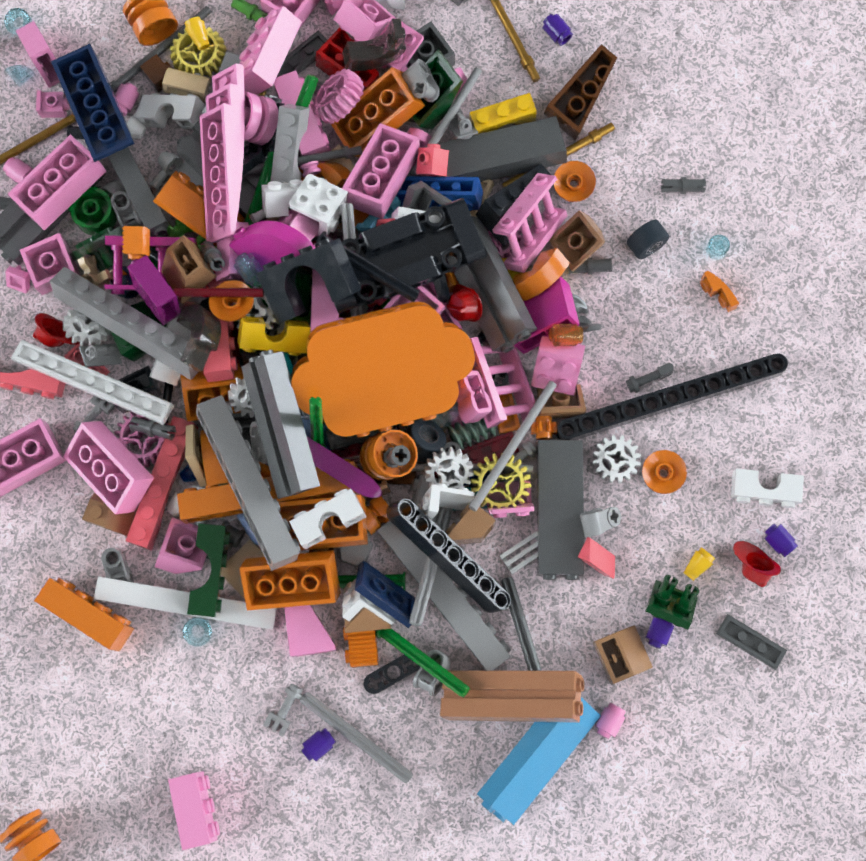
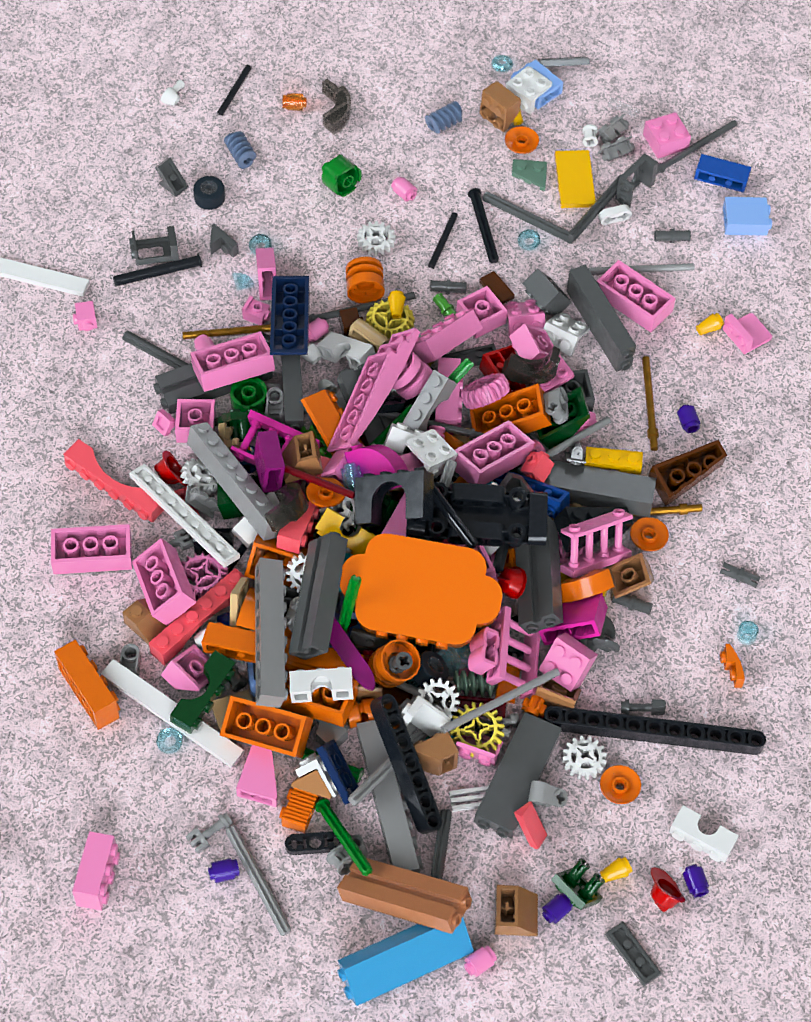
camera: 15 degrees right, 20 degrees down
(136, 241) = (273, 418): orange brick -> none
(152, 428) = (214, 568): dark grey pin -> none
(212, 256) = (323, 456): dark grey pin -> none
(566, 335) = (585, 636): clear orange brick -> none
(647, 239) = (690, 600): black wheel -> none

